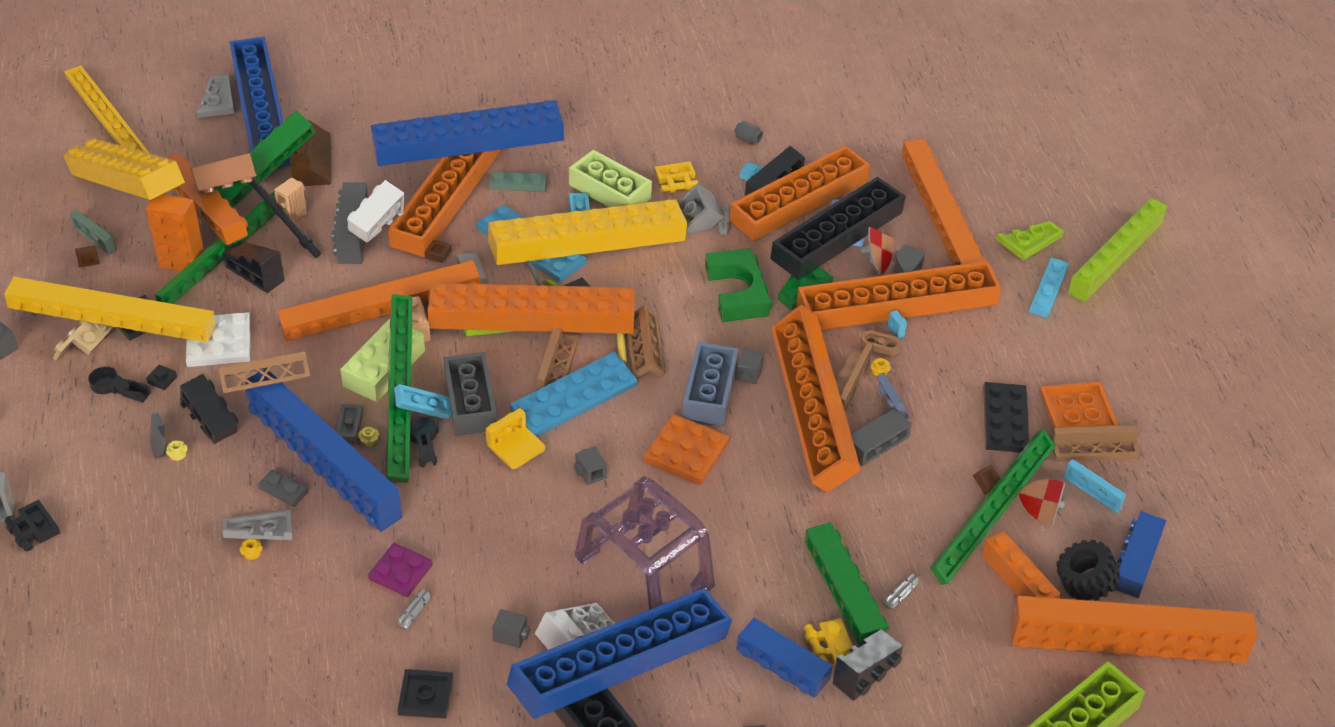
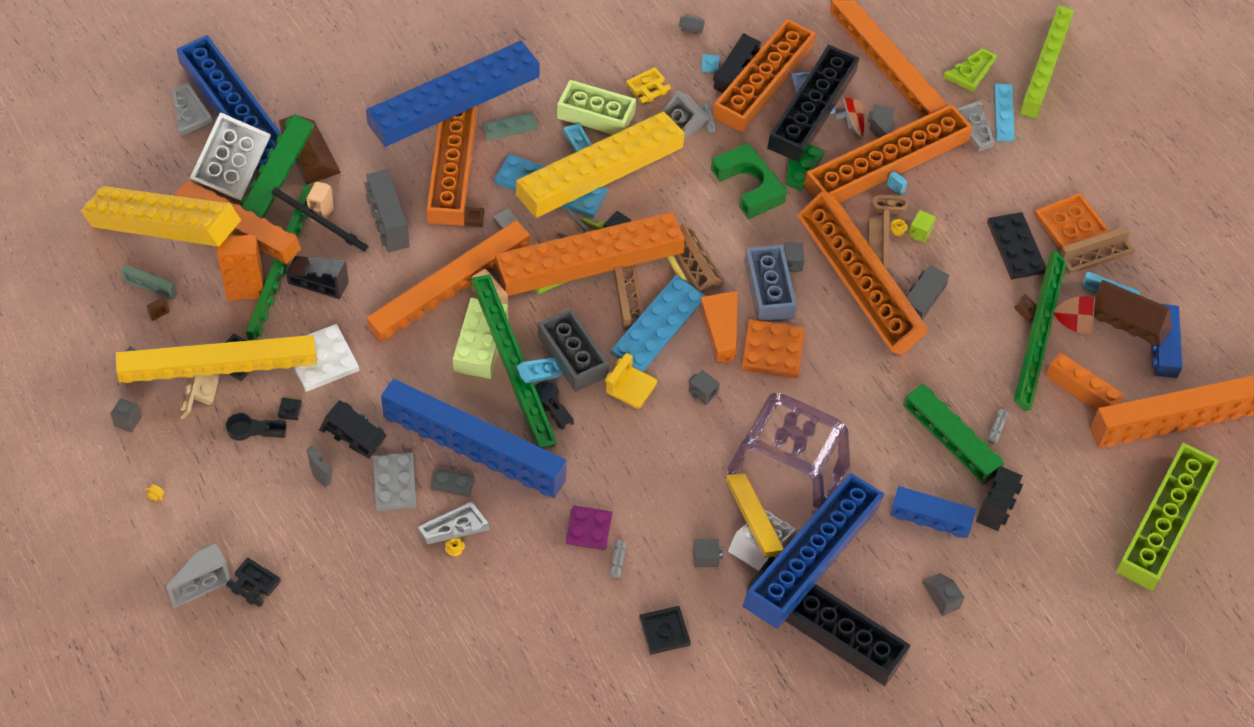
camera: 20 degrees left, 10 degrees up
(103, 109) = (91, 153): yellow plate -> none
(176, 450) = (341, 479): light yellow plate -> none
(223, 173) = (254, 192): nougat slope -> none
(224, 135) = (230, 157): none -> white slope
(225, 471) = (394, 481): none -> light grey plate
(263, 364) = (394, 376): medium nougat fence -> none
(349, 422) = (479, 404): dark grey plate -> none
(368, 436) = (502, 417): light yellow plate -> none
(376, 211) = (416, 198): white wedge -> none
(576, 600) = (754, 515): none -> yellow tile
(641, 410) = (720, 321): none -> orange slope
(834, 637) = (965, 484): yellow plate -> none
(894, 401) = (921, 252): sand blue plate -> none
(905, 371) = (922, 226): none -> lime brick
(1012, 291) = (981, 134): none -> light grey wing
(1084, 557) = (1137, 354): black tyre -> none
(1104, 512) = (1132, 313): none -> reddish brown slope

